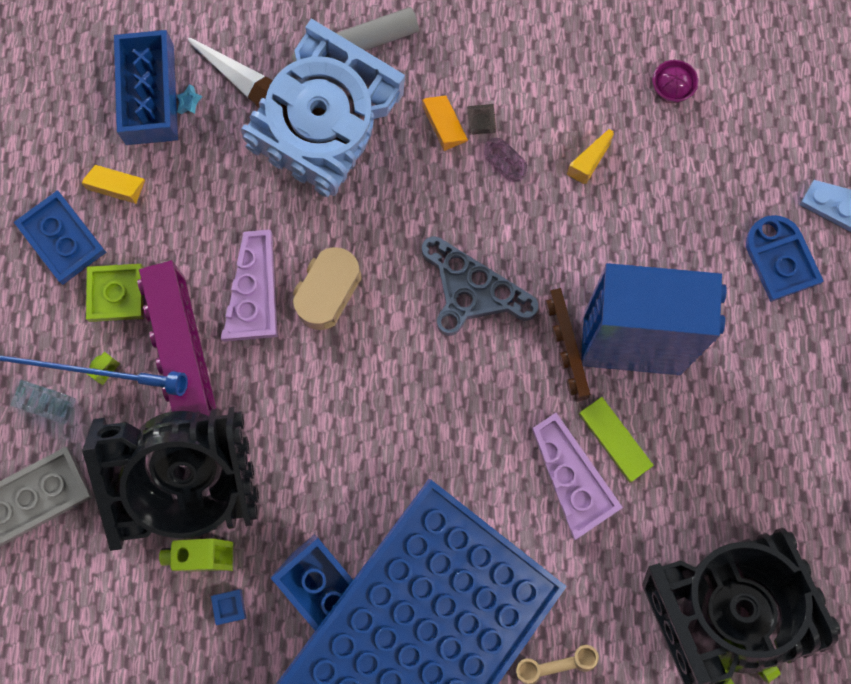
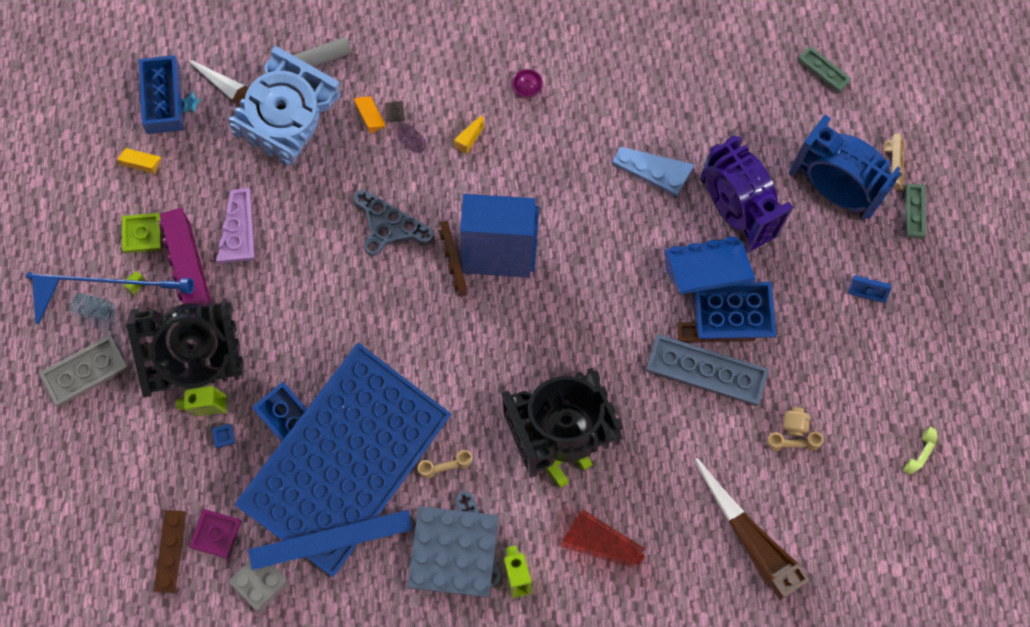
camera: 10 degrees left, 5 degrees down
(60, 237) = (102, 197): blue plate -> none
(326, 288) = (288, 226): tan brick -> none
(577, 483) = (459, 348): lavender wing -> none
(616, 439) = (486, 320): lime tile -> none
(782, 260) = (599, 200): blue tile -> none

